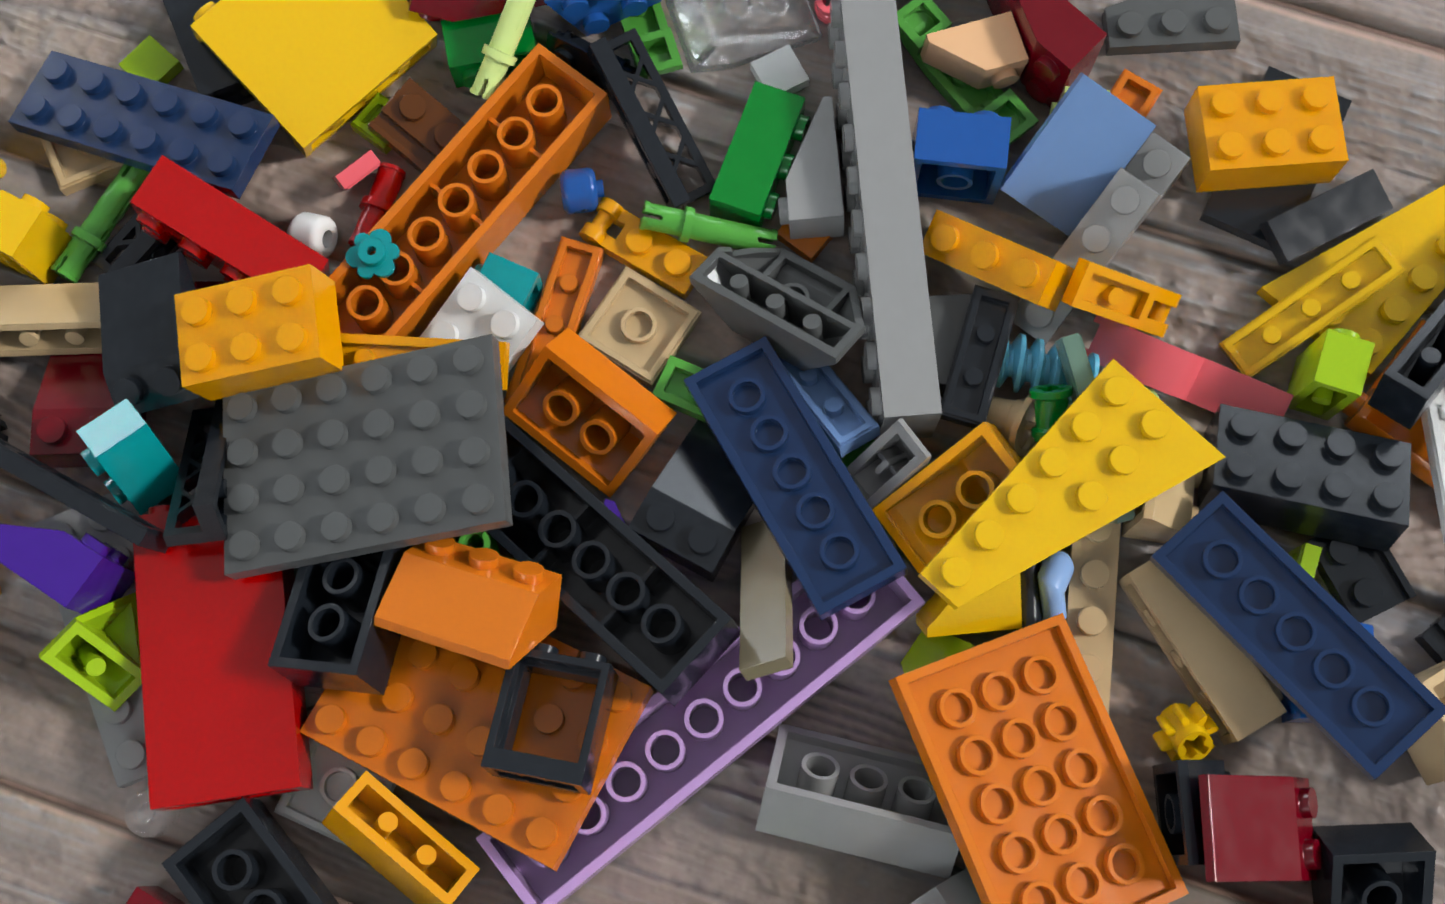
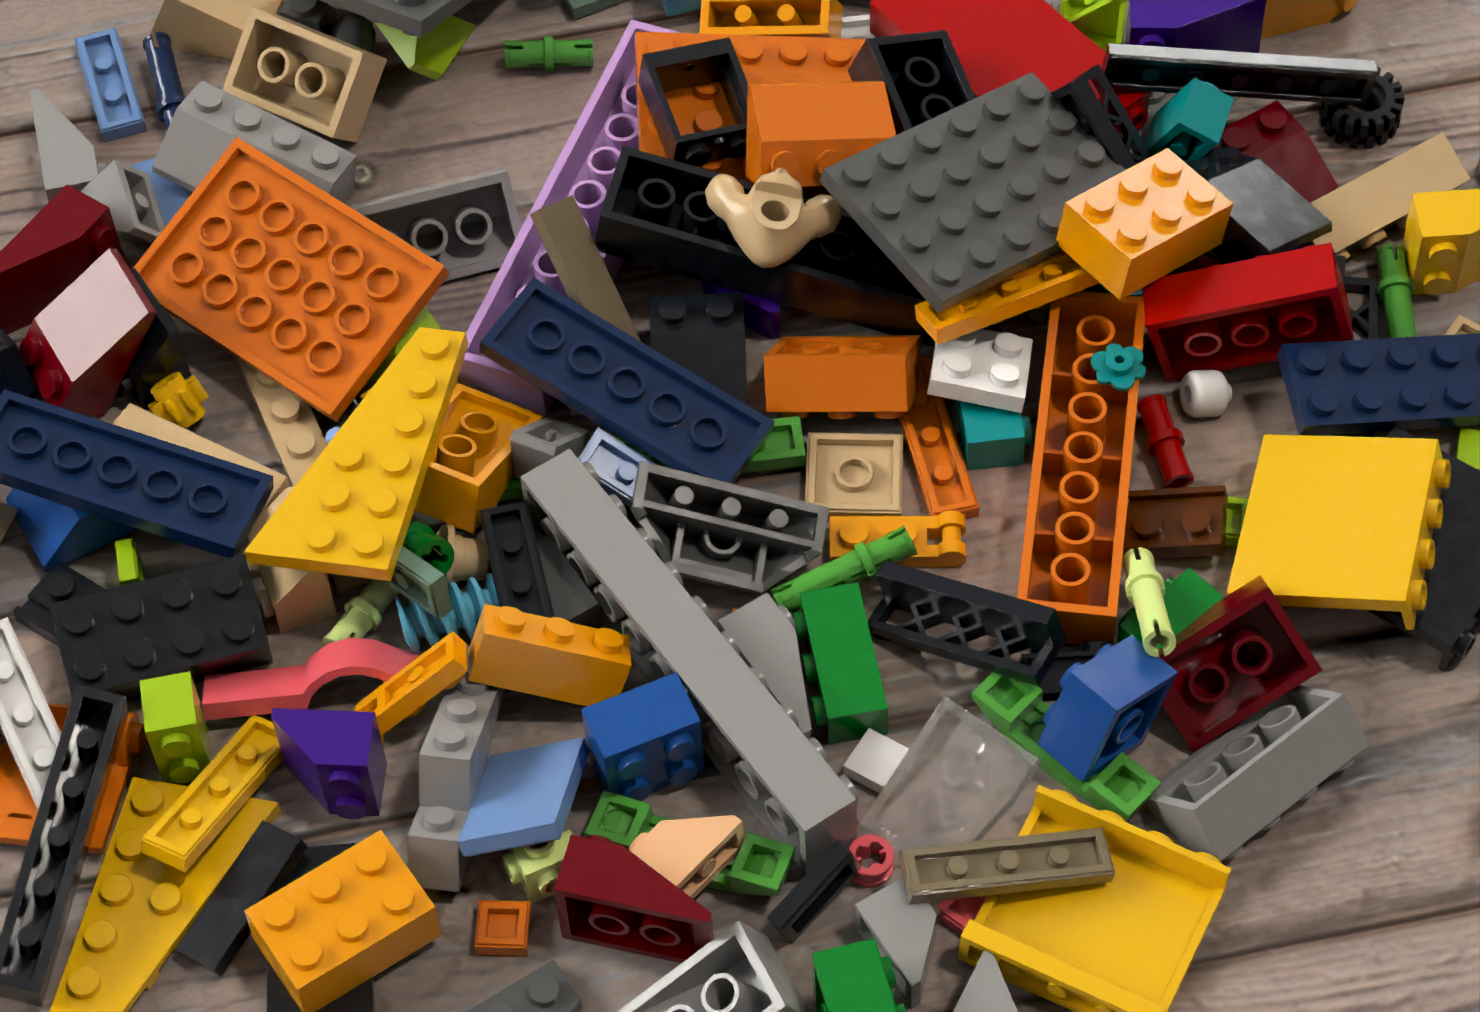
camera: 150 degrees right, 20 degrees down
(357, 170) = (1208, 455): coral tile -> none
(578, 522) = (772, 219): none -> tan head
(580, 190) = (990, 547): blue piece -> none
(1214, 275) = (334, 757): none -> dark purple slope

